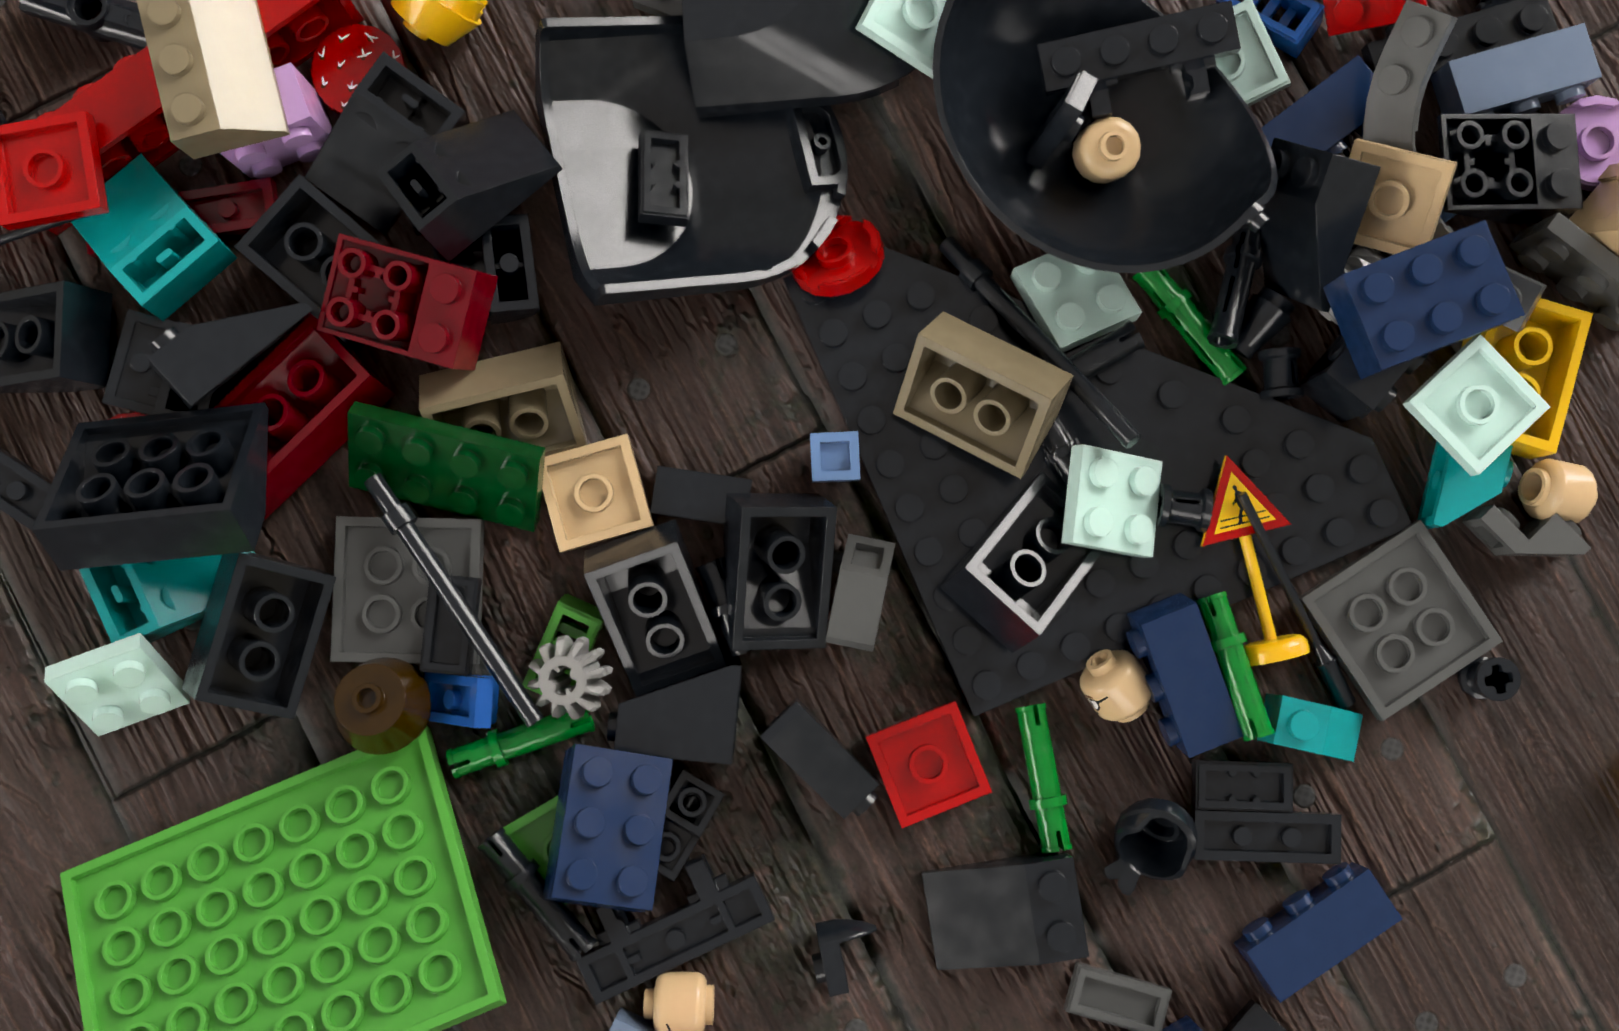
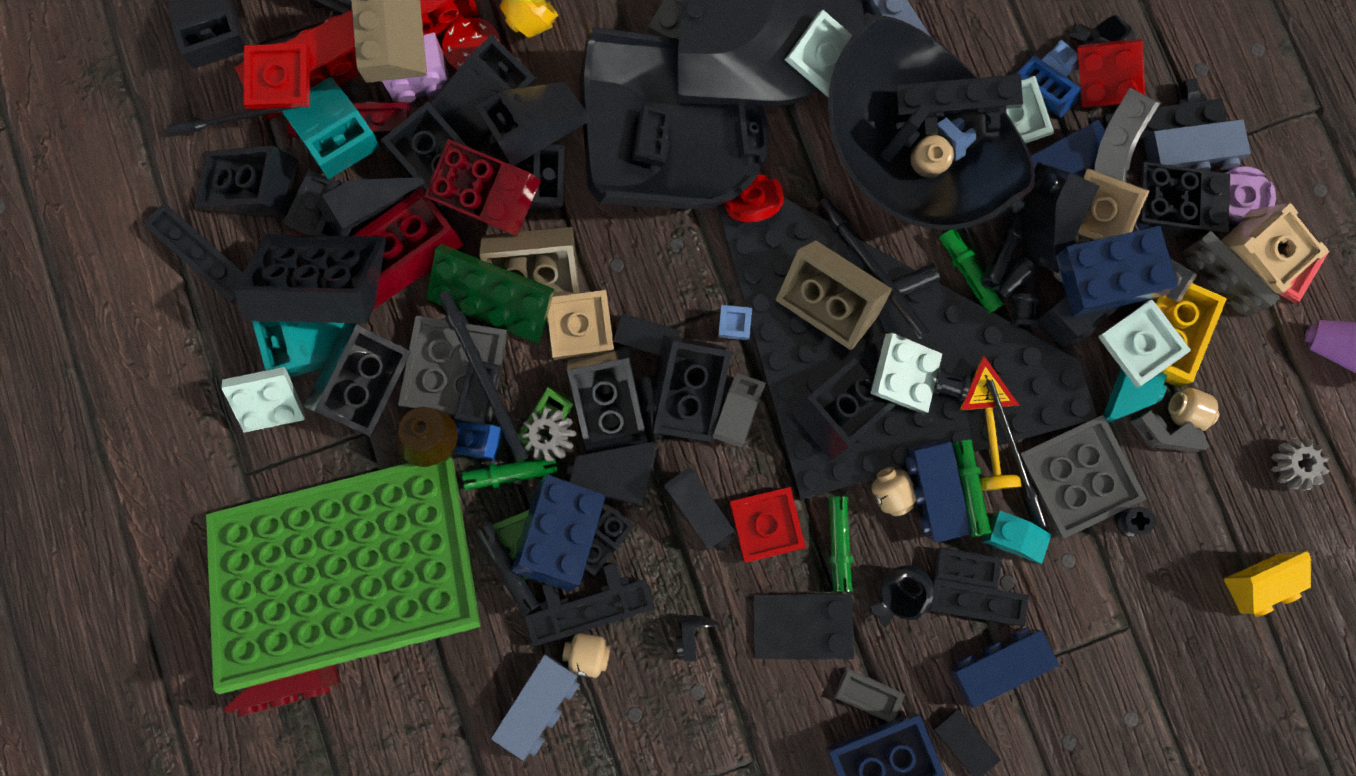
camera: 10 degrees right, 5 degrees down
(1073, 301) = (899, 245): light aqua plate -> none
(1145, 119) = (959, 140): none -> medium blue tile

